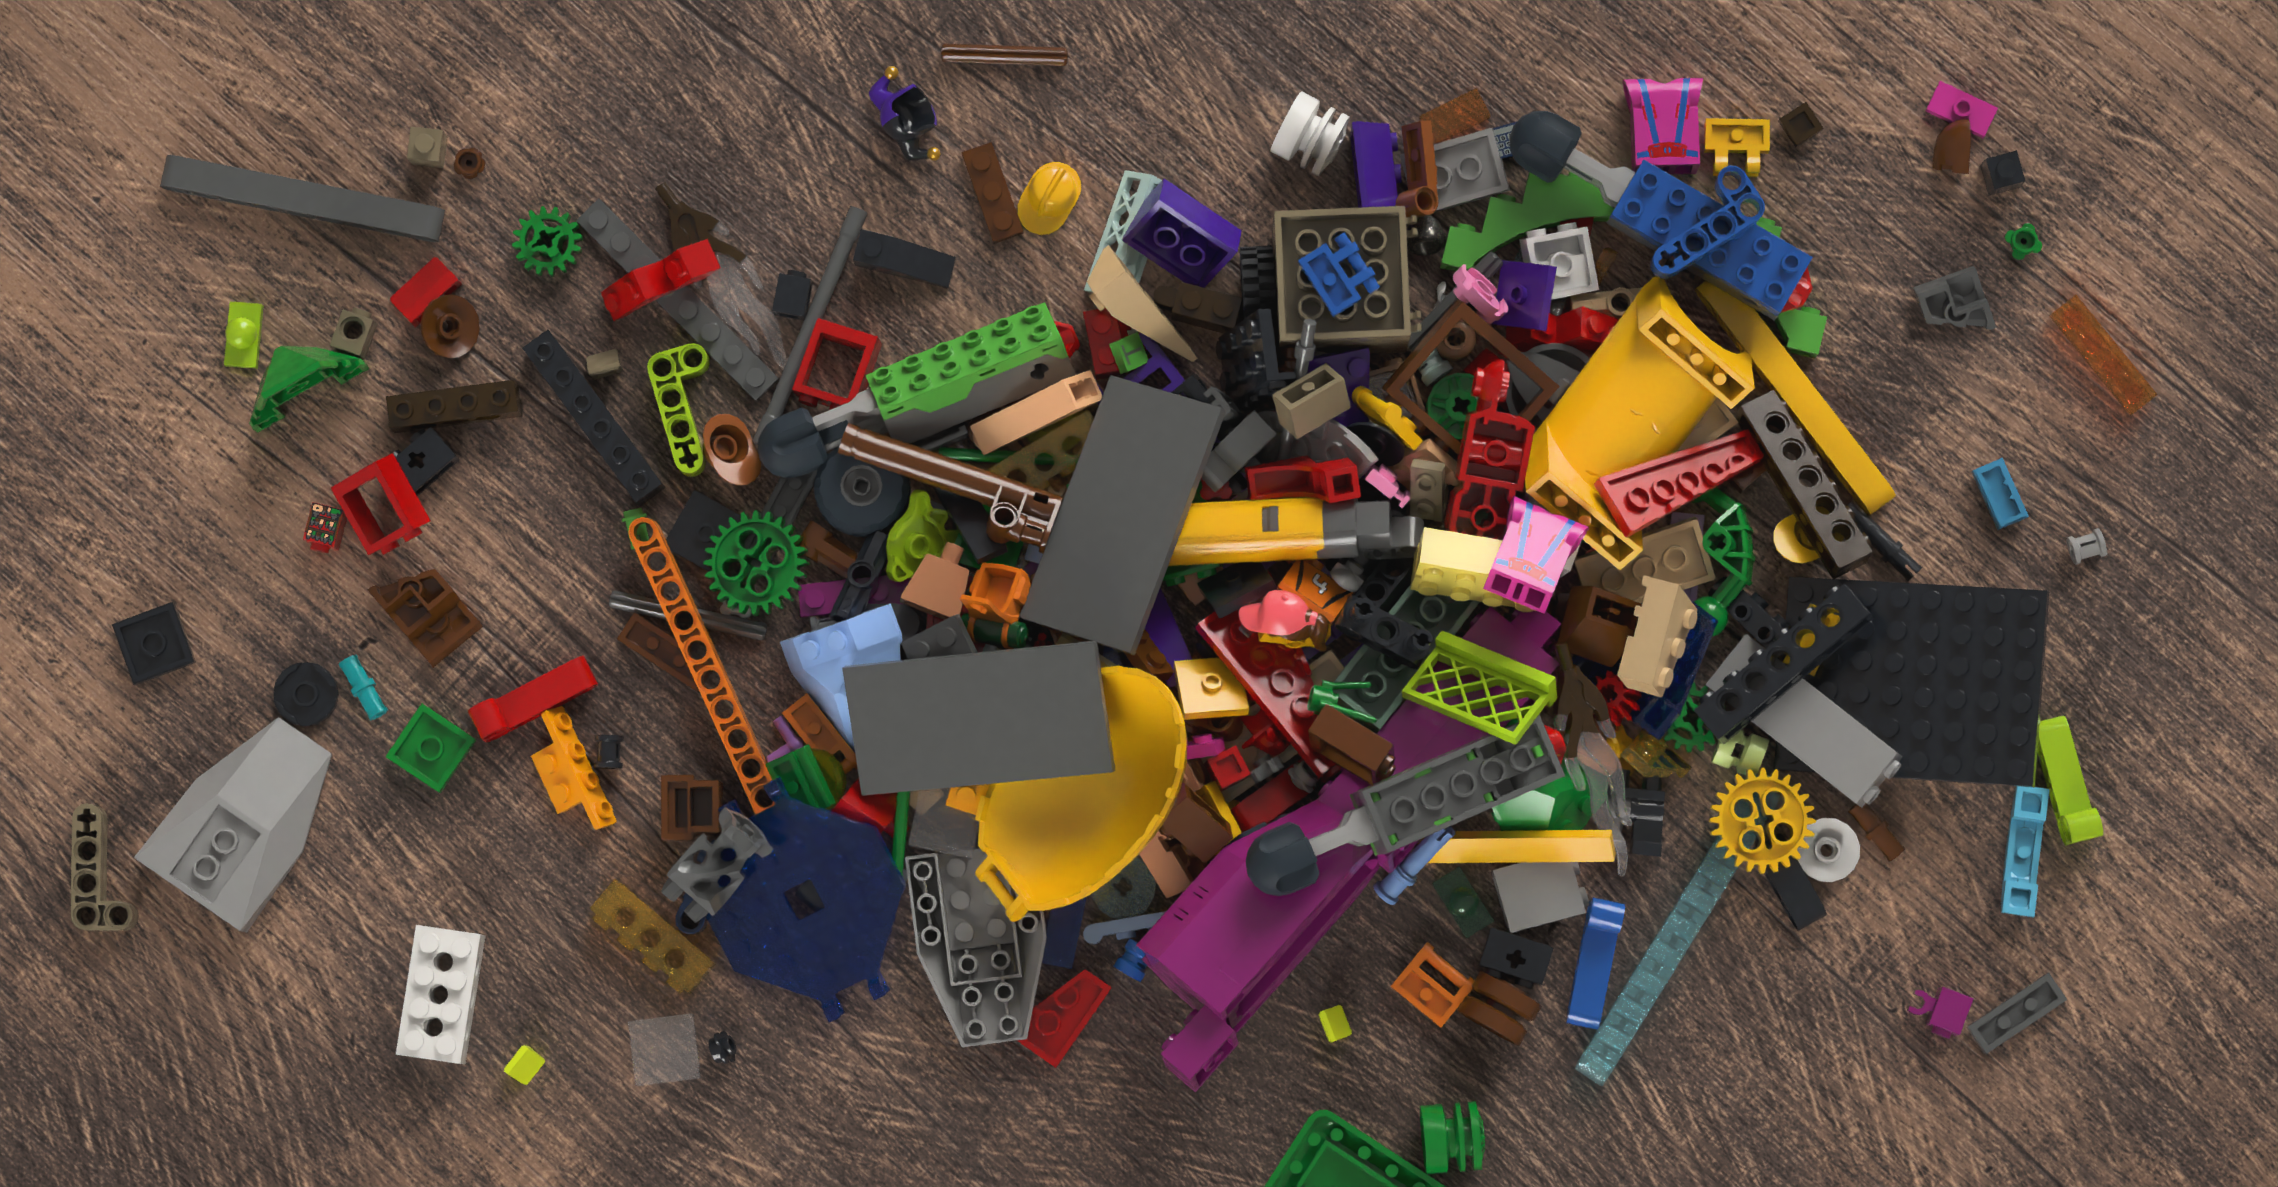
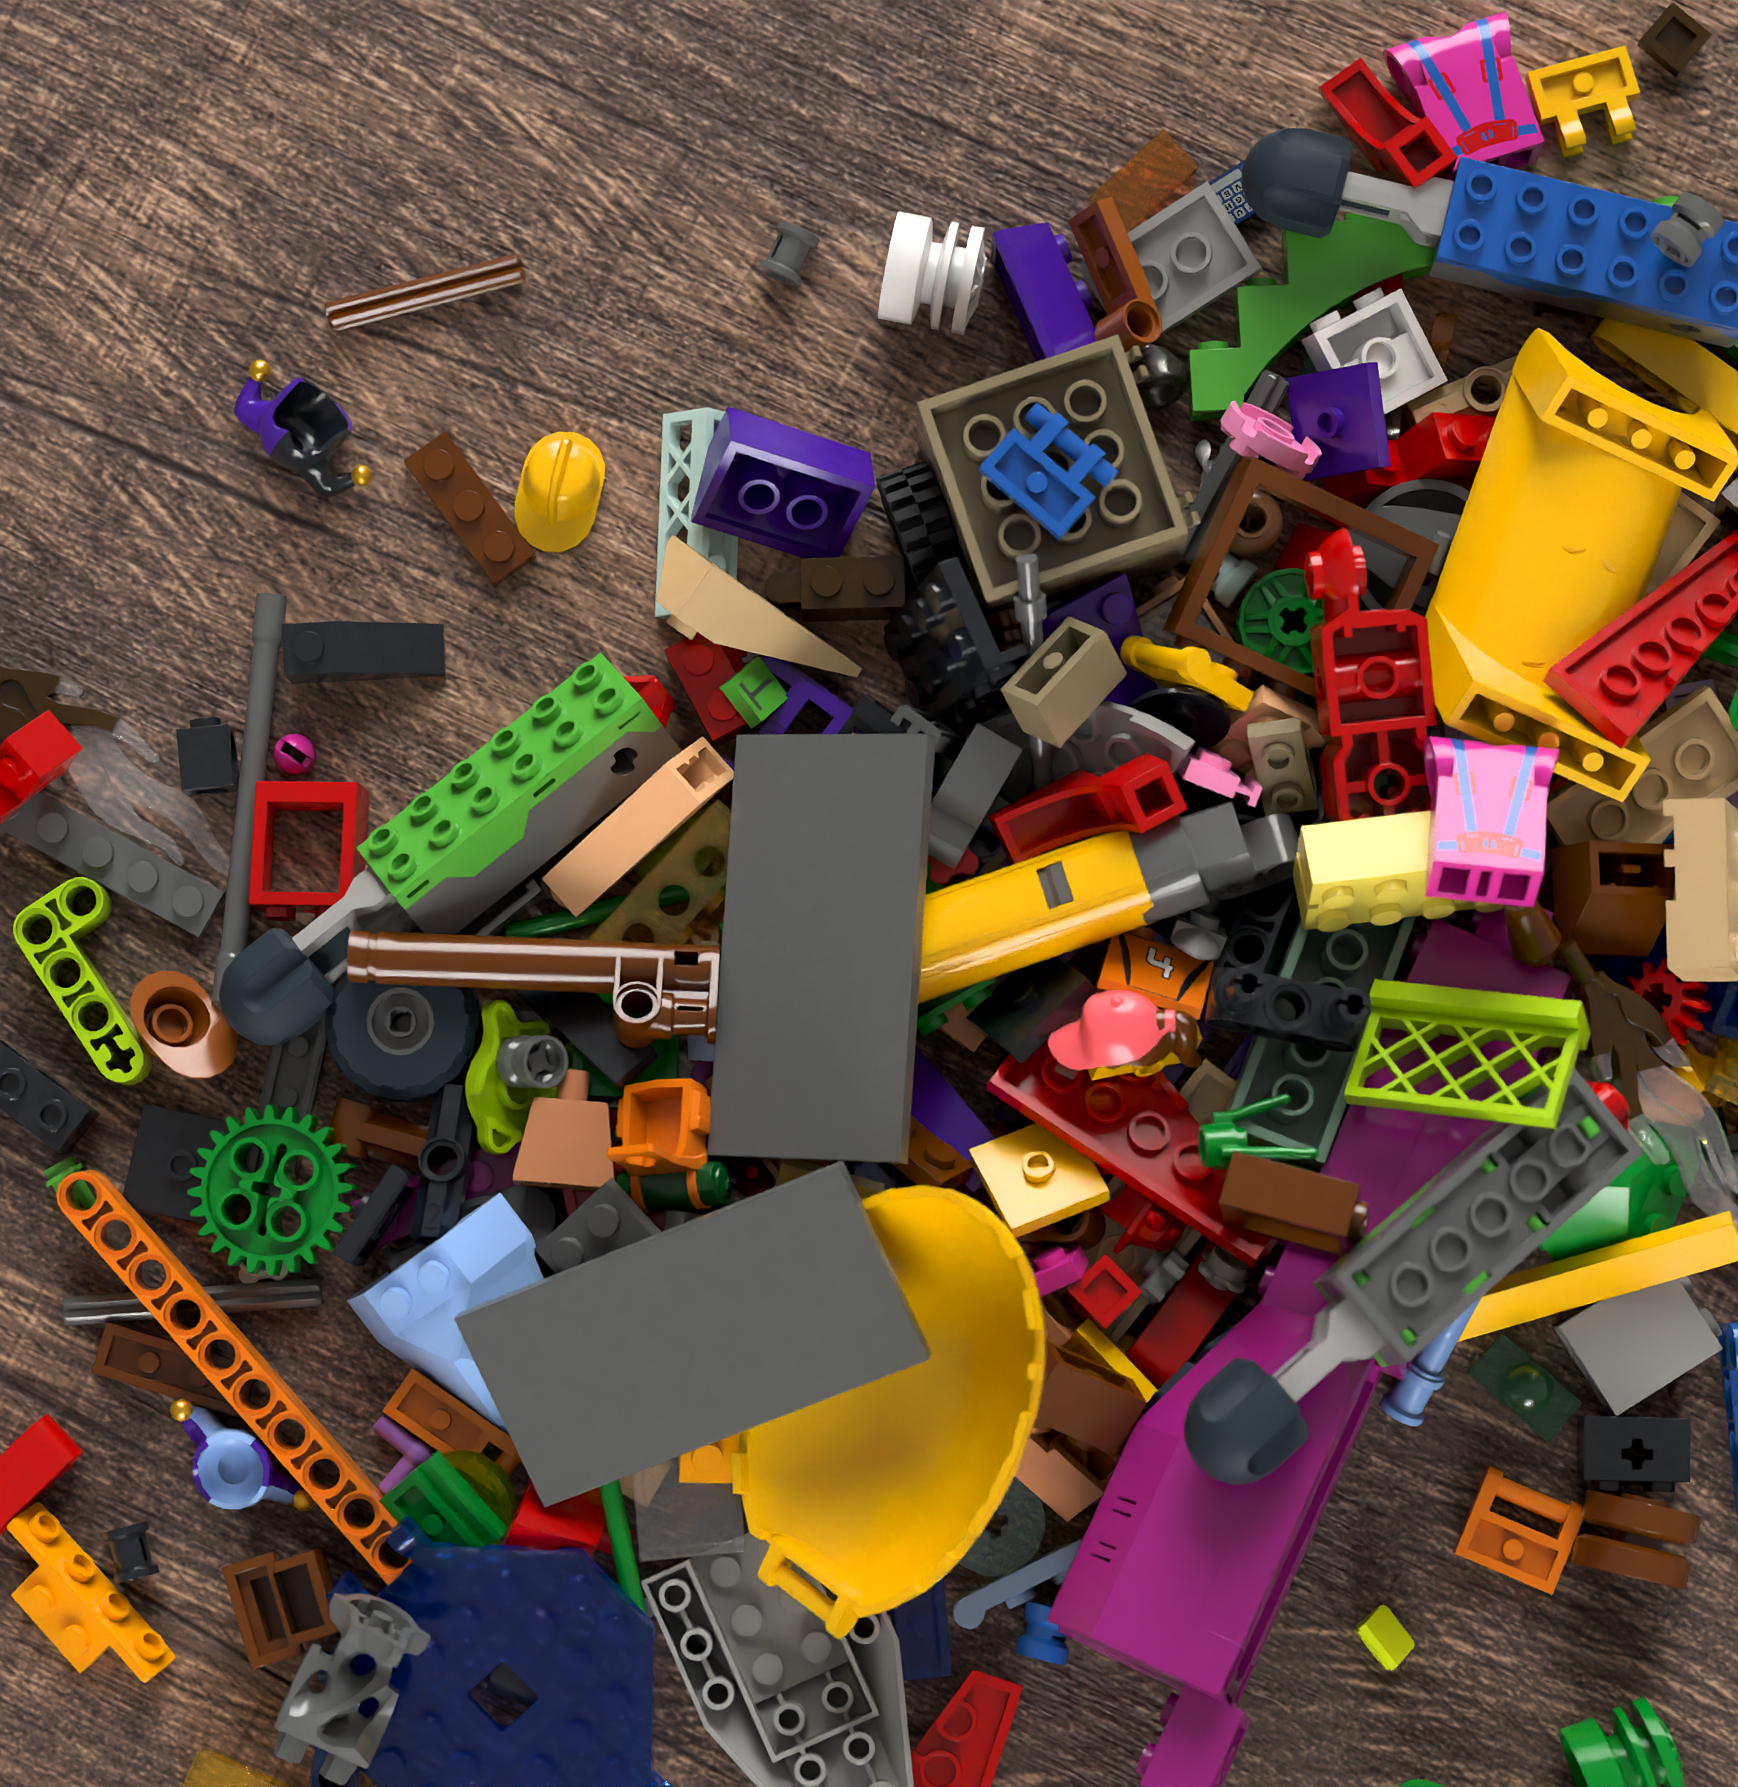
camera: 15 degrees left, 0 degrees up
(685, 718) = (235, 1465): none -> light blue piece
(813, 595) = (375, 1216): none -> black plate
(838, 312) = (287, 763): none -> dark pink hinge
(932, 532) = (532, 1061): none -> dark grey wheel
(1228, 96) = (788, 253): none -> dark grey bush
(1542, 631) = (1531, 934): none -> reddish brown cone
(1608, 127) = (1385, 129): none -> red arch
(1704, 229) = (1593, 236): blue beam -> none
(1762, 243) = (1687, 229): none -> dark grey wheel

